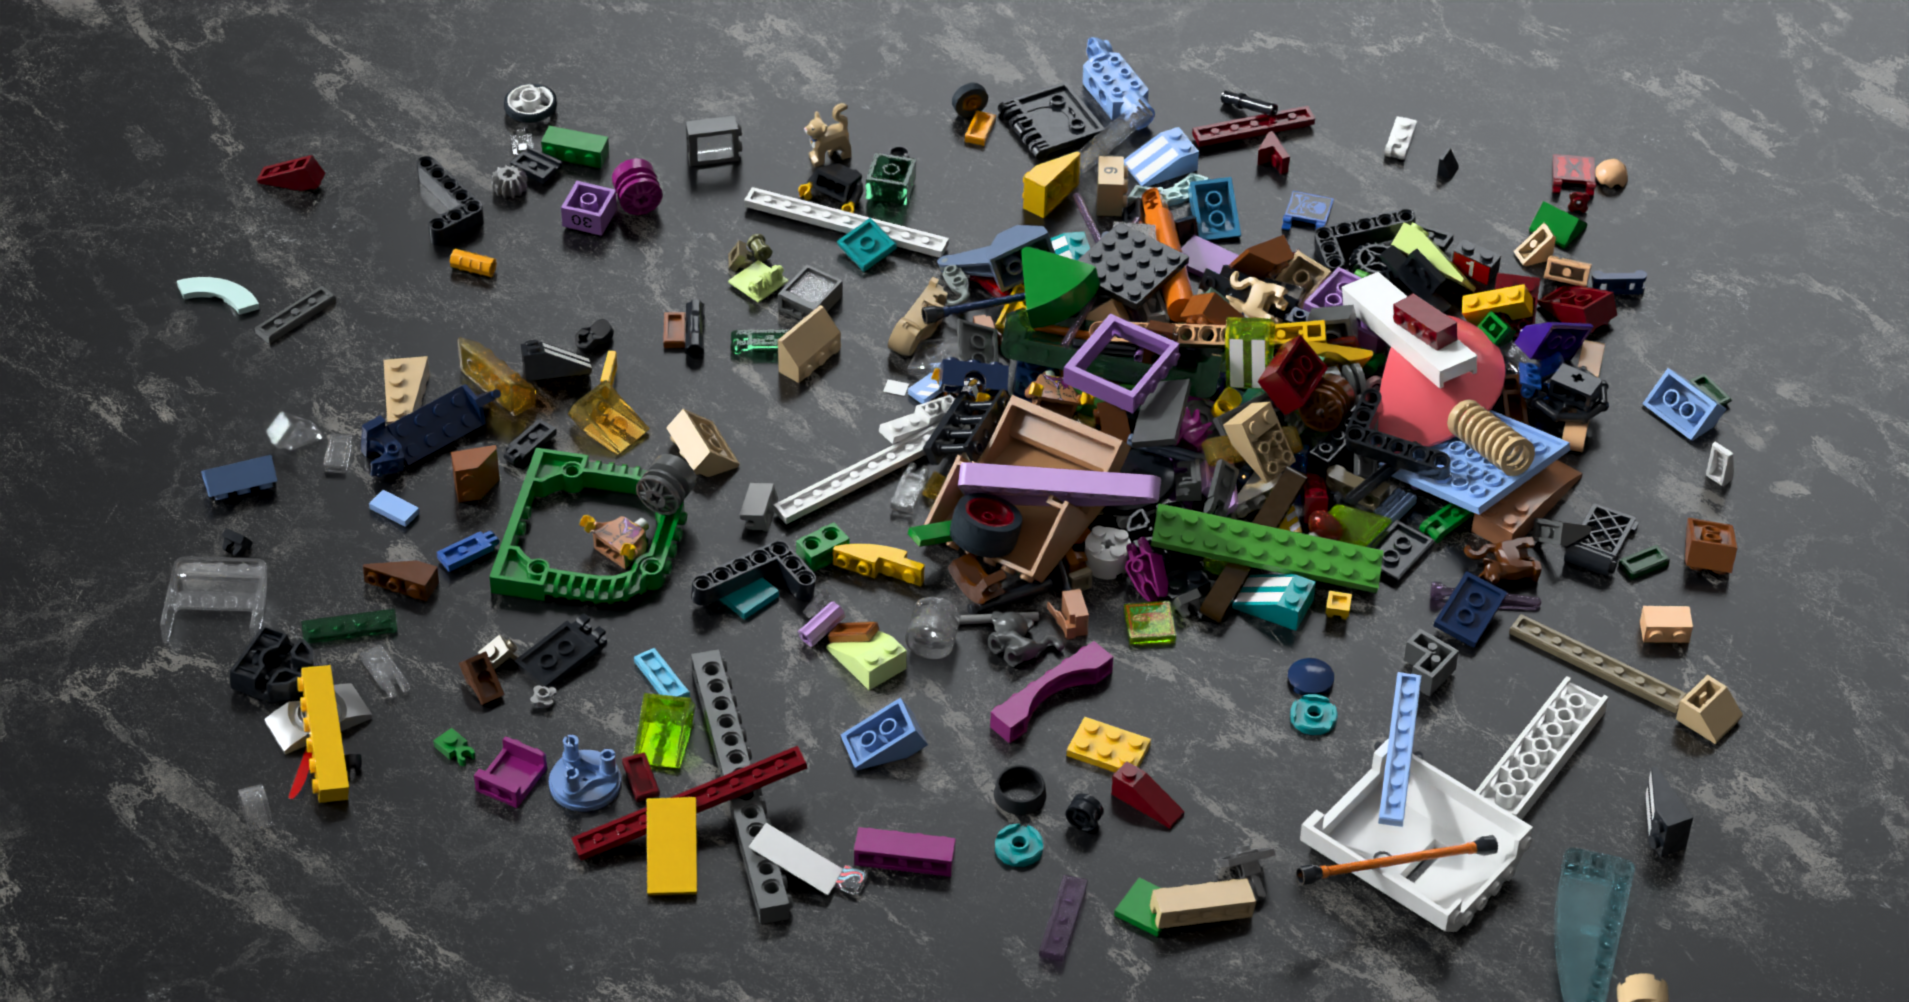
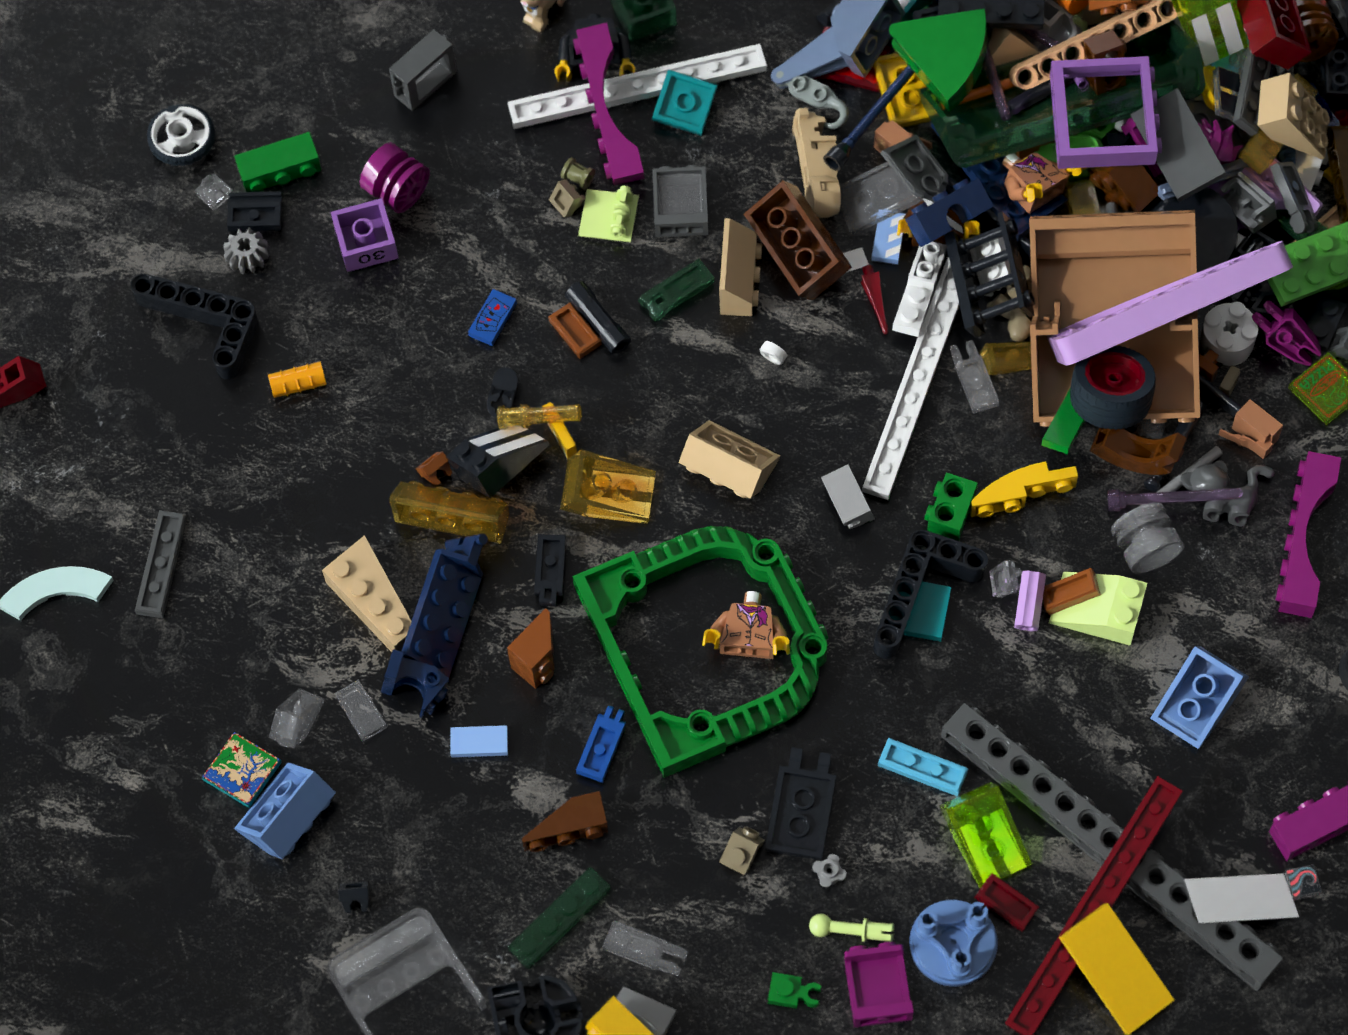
camera: 30 degrees left, 20 degrees up
(235, 443) = (241, 769): none -> tile
(481, 677) = (752, 891): reddish brown arch -> none
(509, 349) = (435, 462): none -> dark orange tile
(534, 739) = (822, 925): none -> yellowish green pin
(592, 349) = (507, 416): none -> clear yellow pin
(629, 295) = (492, 317): none -> blue tile
(666, 484) = (761, 543): dark grey wheel -> none
(789, 405) = (773, 353): none -> white tile
(826, 180) = (622, 155): none -> magenta arch
(862, 349) = (797, 240): none -> reddish brown brick
(892, 407) = (872, 287): none -> dark red piece
(985, 621) = (1119, 499): none -> clear purple piece
(1229, 401) = (1225, 91): none -> tile

